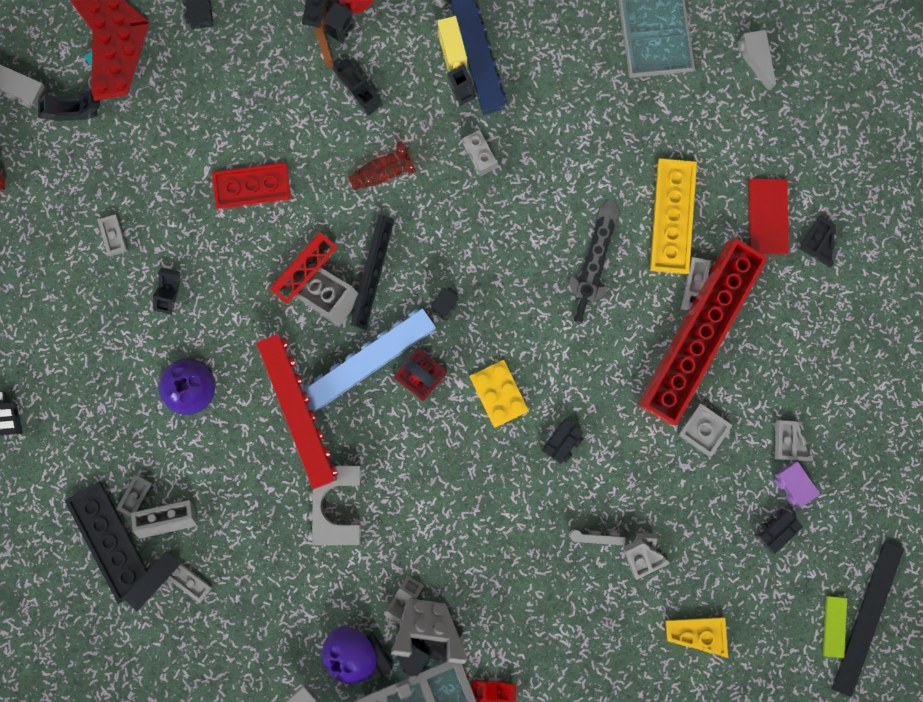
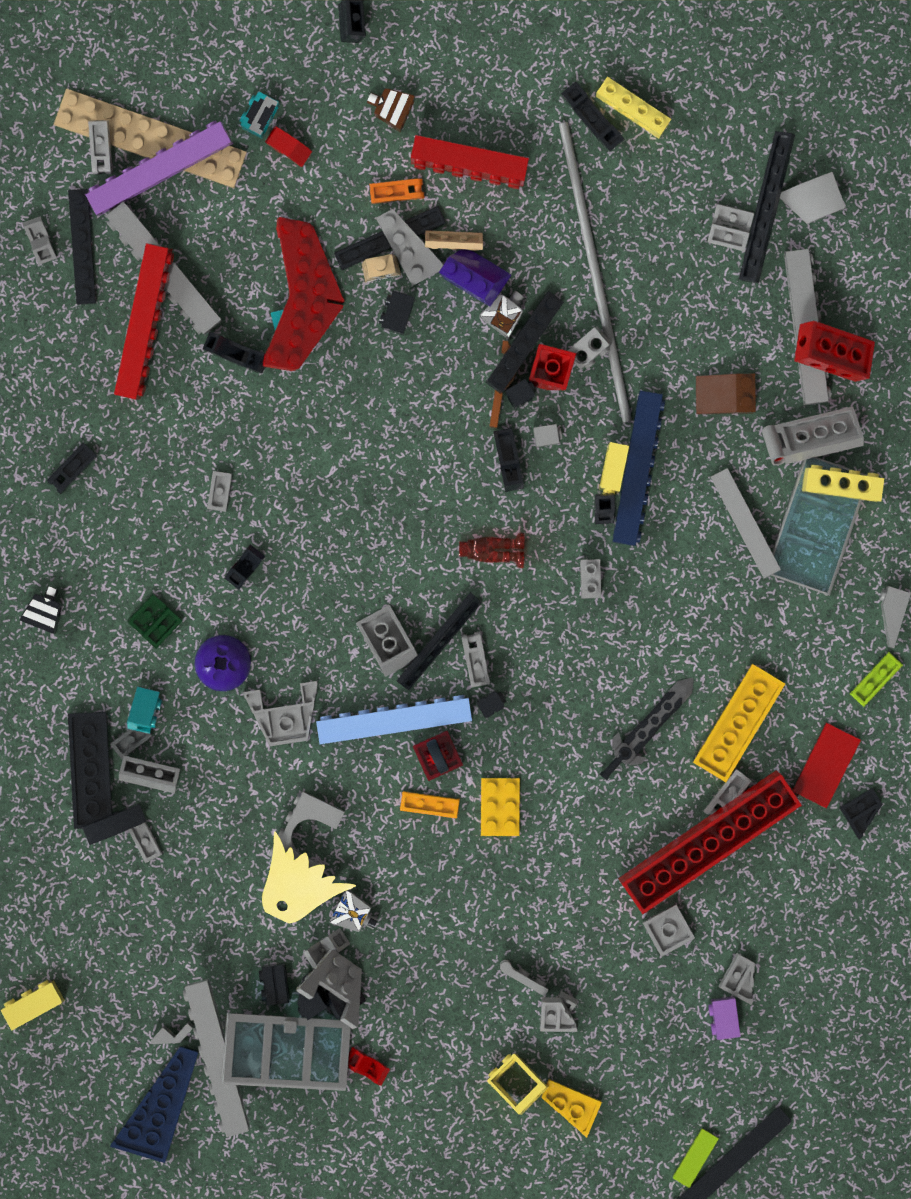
camera: 30 degrees right, 5 degrees up
(115, 381) = (161, 626): none -> dark green slope
(132, 463) = (143, 710): none -> teal brick
(251, 185) = (367, 505): red tile -> none
(261, 417) = (284, 723): none -> light grey wing
(296, 411) = (312, 738): red brick -> none
(301, 259) = (375, 599): red fence -> none
(348, 554) = (296, 885): none -> light yellow piece
(348, 655) = (256, 972): dark purple piece -> none
(380, 49) = (547, 435): none -> light grey brick
(412, 555) = (353, 913): none -> torso
(413, 274) = (475, 660): none -> light grey plate
(434, 422) = (429, 804): none -> light orange tile
(563, 441) = (535, 878): black brick -> none
(591, 41) = (745, 523): none -> light grey tile
(659, 647) = (496, 1073): none -> light yellow window
(772, 121) = (876, 679): none -> lime tile
(778, 530) = (688, 1050): black brick -> none

